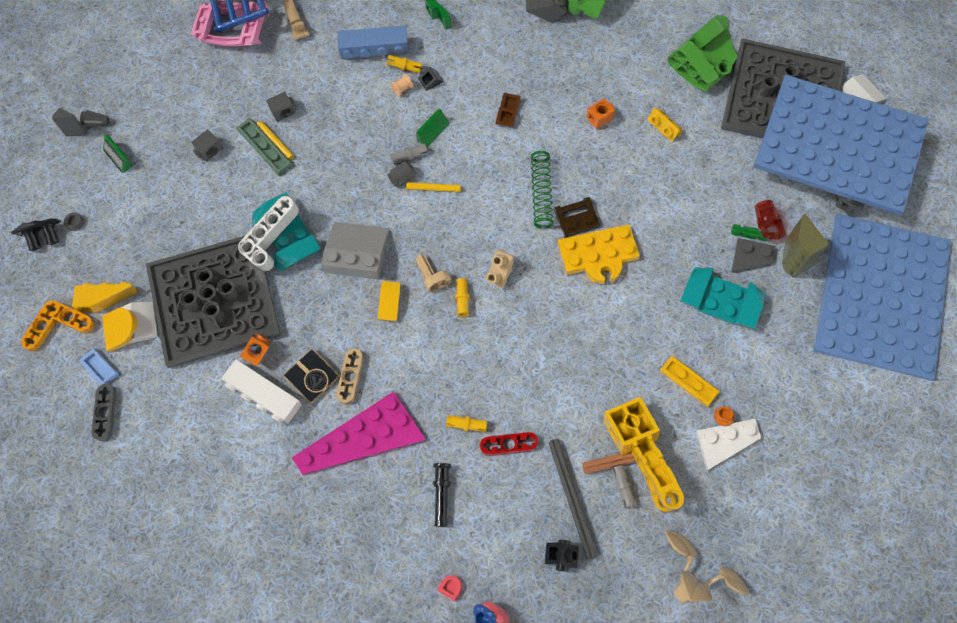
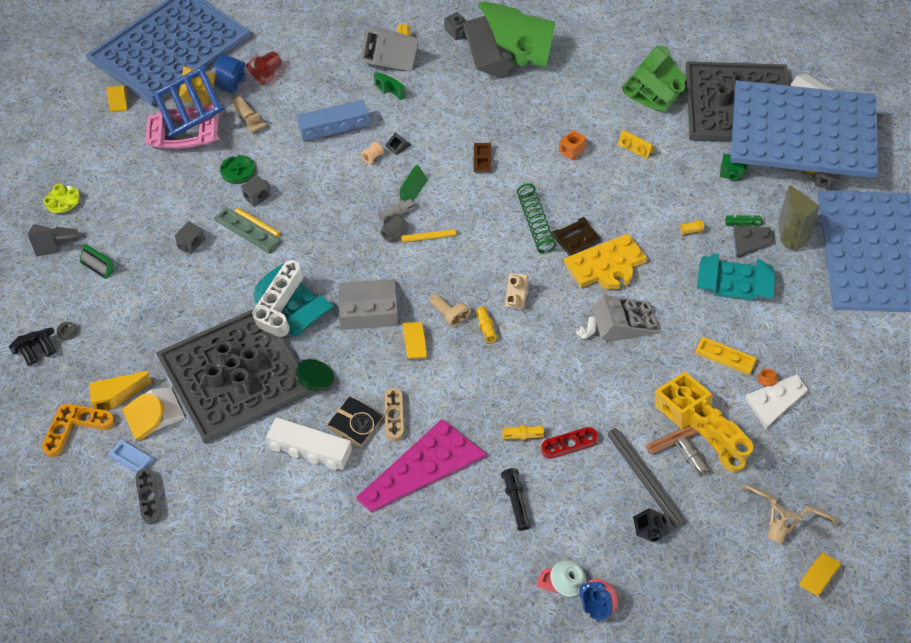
camera: 15 degrees left, 15 degrees down
(101, 79) = (61, 199): none -> neon yellow dish
(255, 357) = (285, 409): orange brick -> none
(271, 78) = (237, 169): none -> green tile
(285, 319) = (314, 375): none -> dark green tile
(404, 64) = (369, 134): yellow pin -> none
(460, 587) = (561, 580): none -> light aqua piece
(563, 324) = (591, 328): none -> white arm
(599, 319) = (624, 318): none -> light grey slope
(695, 230) = (692, 227): none -> yellow pin
(752, 174) = (730, 170): none -> green brick
(767, 217) = (758, 204): clear red piece -> none

